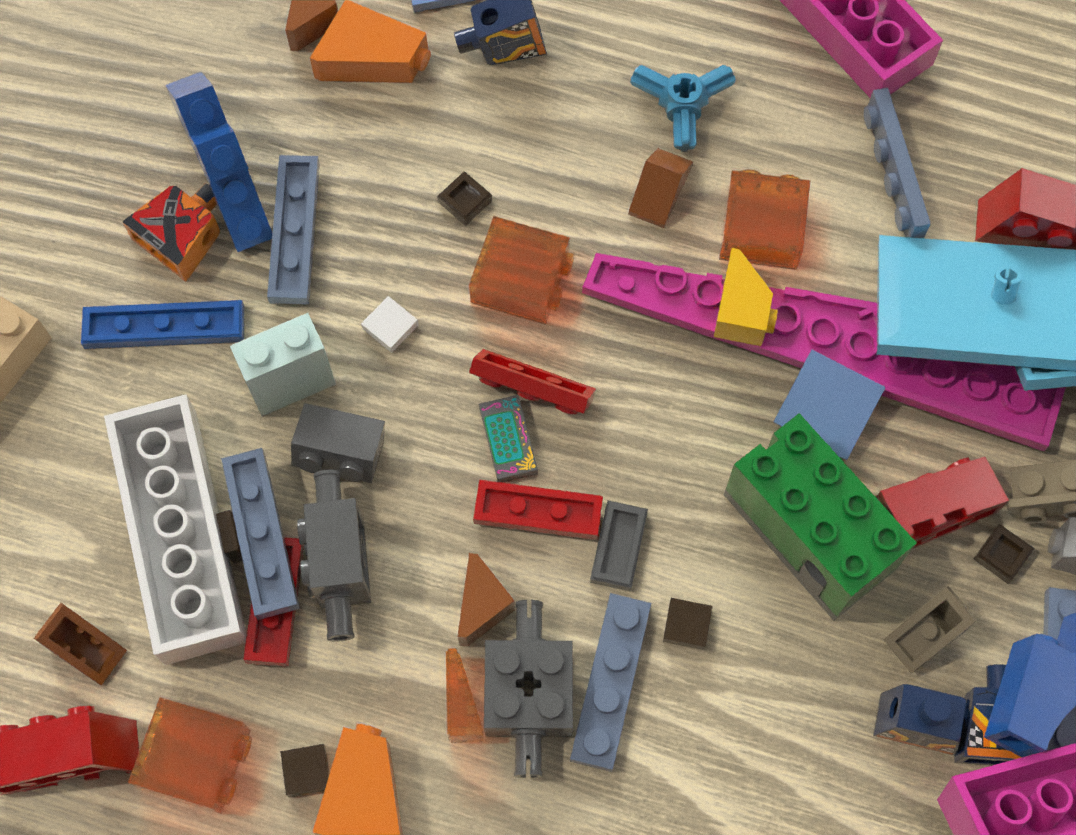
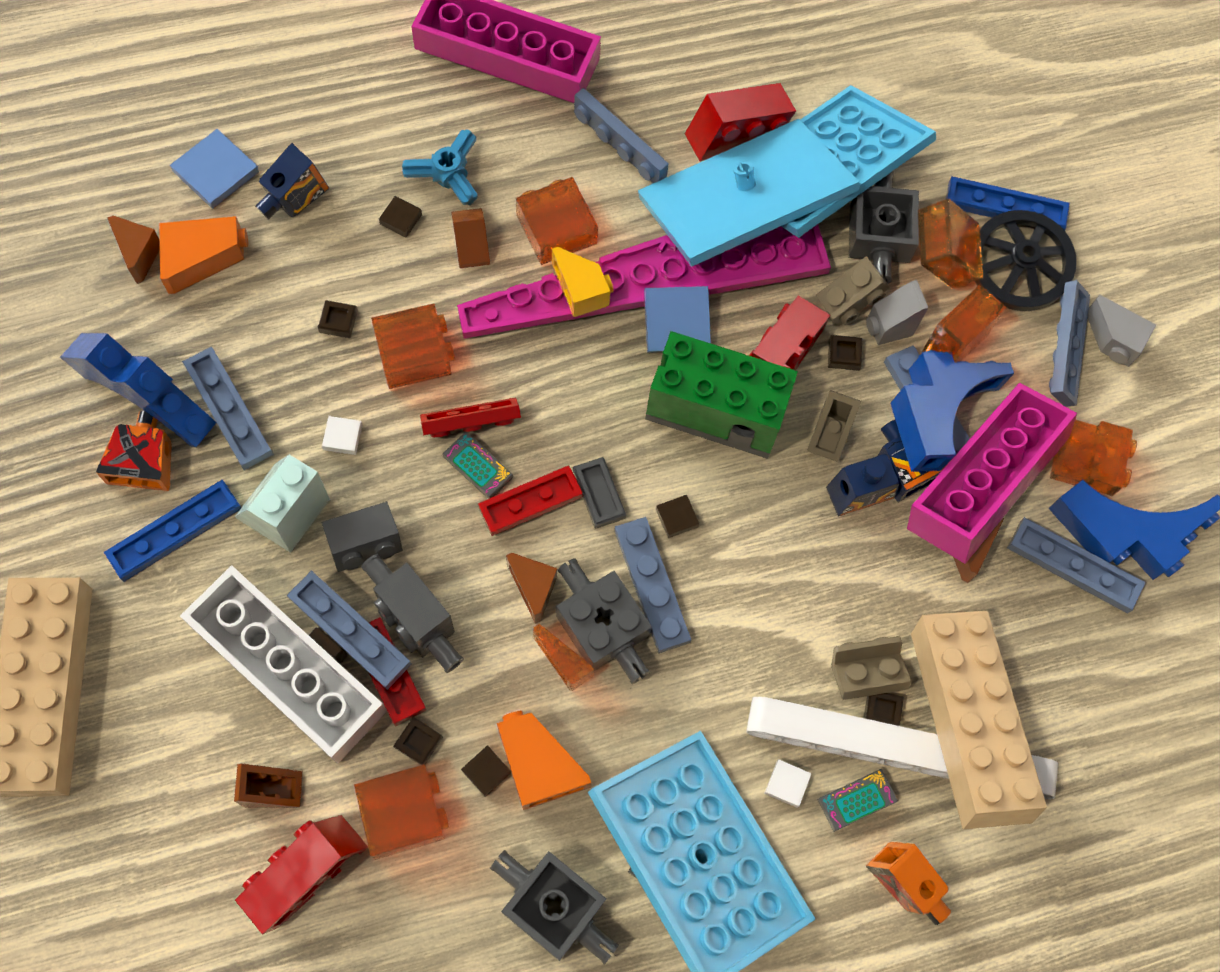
camera: 40 degrees left, 0 degrees up
(258, 694) = (418, 741): none -> dark brown tile
(600, 124) = (400, 216): none -> dark brown tile

